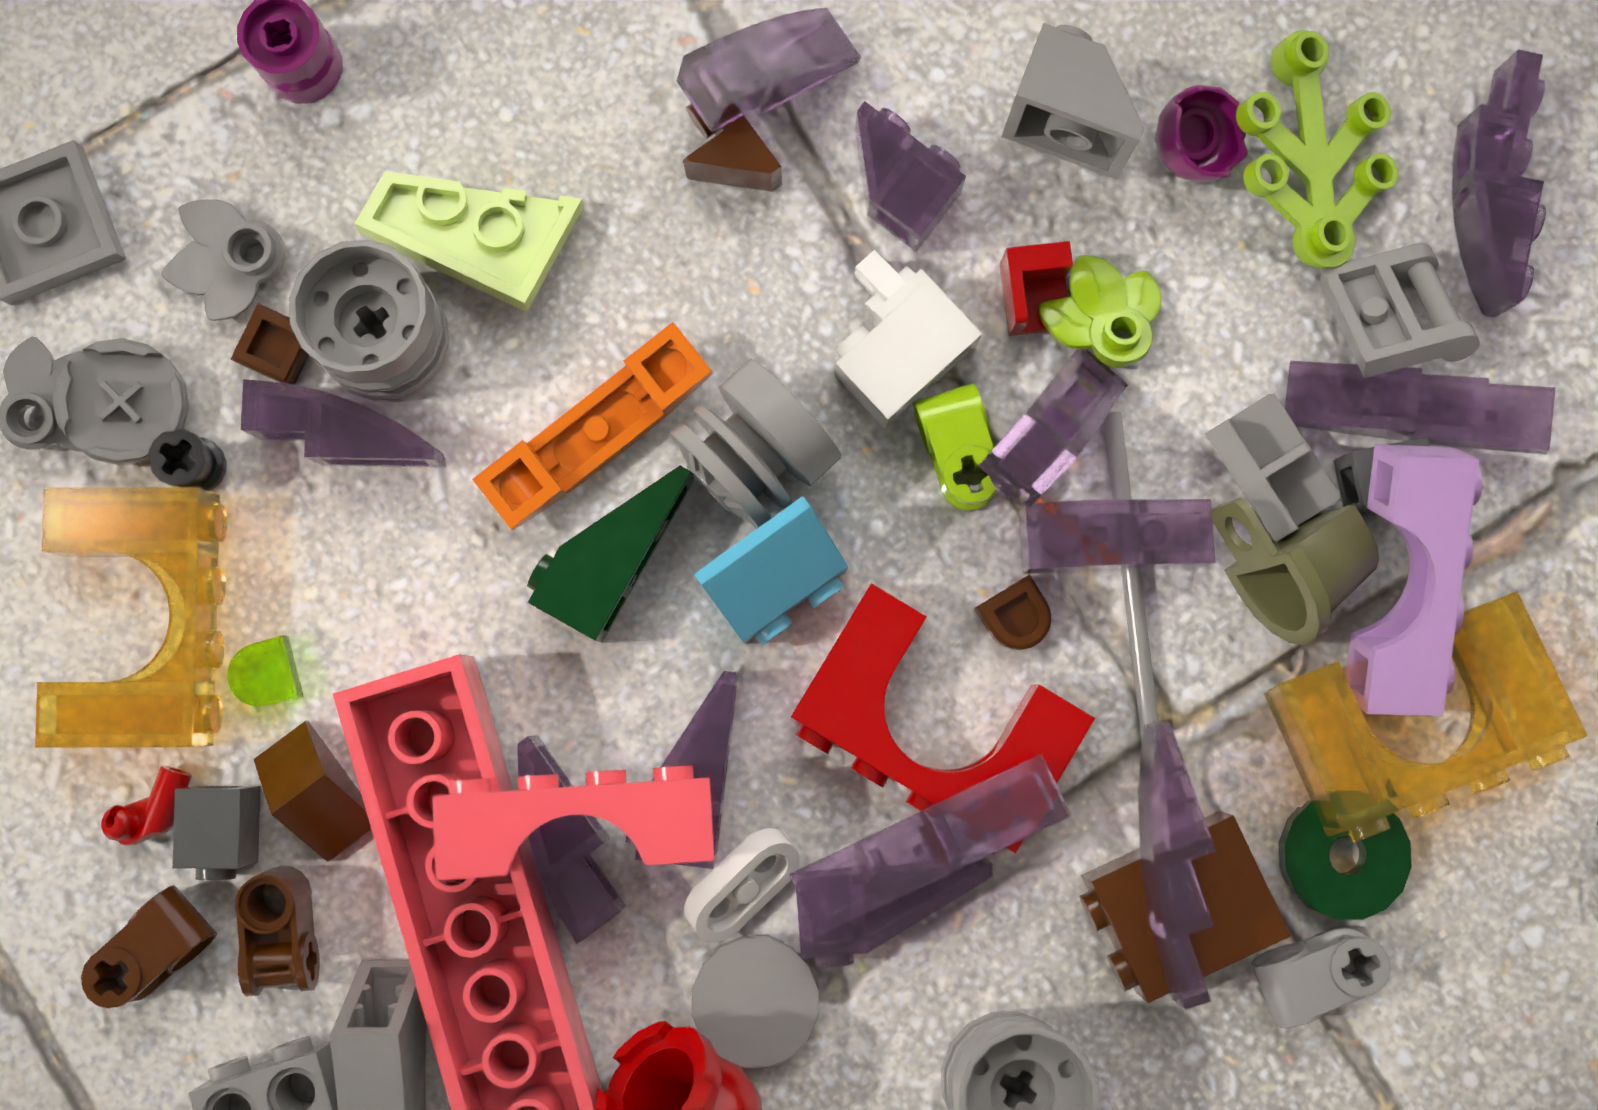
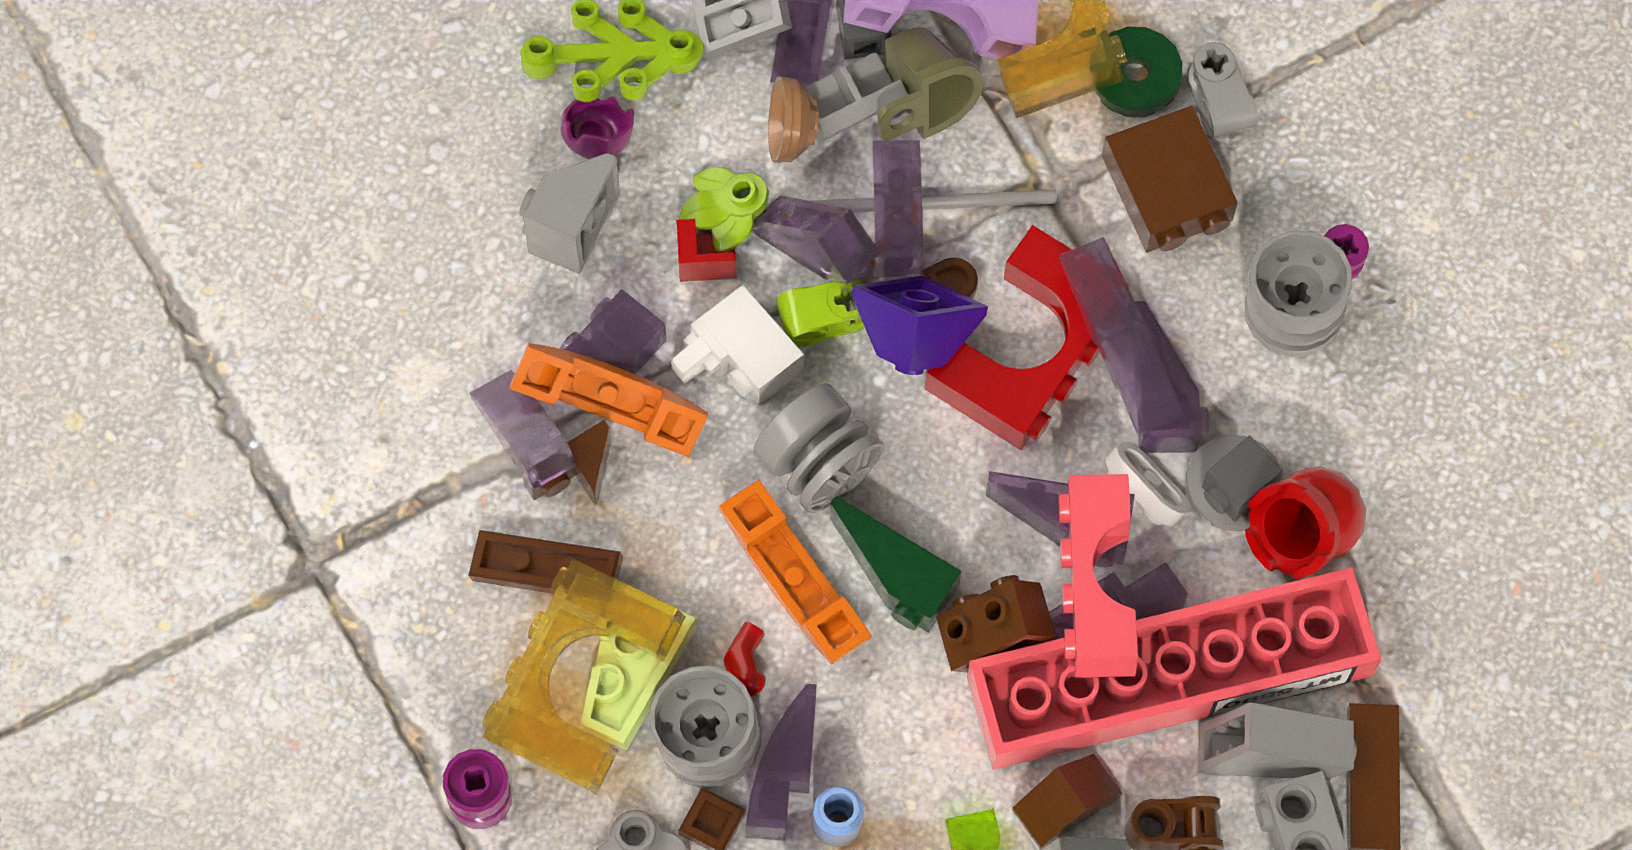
camera: 90 degrees left, 15 degrees down
(250, 494) = (839, 802): none -> light blue brick
(384, 105) = (582, 607): none -> clear yellow arch
(480, 366) = (740, 659): none -> red arm
(520, 689) = (995, 622): none -> reddish brown brick
(594, 117) = (532, 561): none -> reddish brown tile
(742, 1013) = (1239, 478): none -> dark grey brick
(774, 573) = (915, 445): medium azure slope -> none
(826, 170) = (610, 393): none -> orange slope
(943, 565) = (916, 321): none -> dark purple slope
(1171, 836) = (1120, 176): clear purple slope -> none
(1228, 389) = (791, 120): none -> medium nougat piece

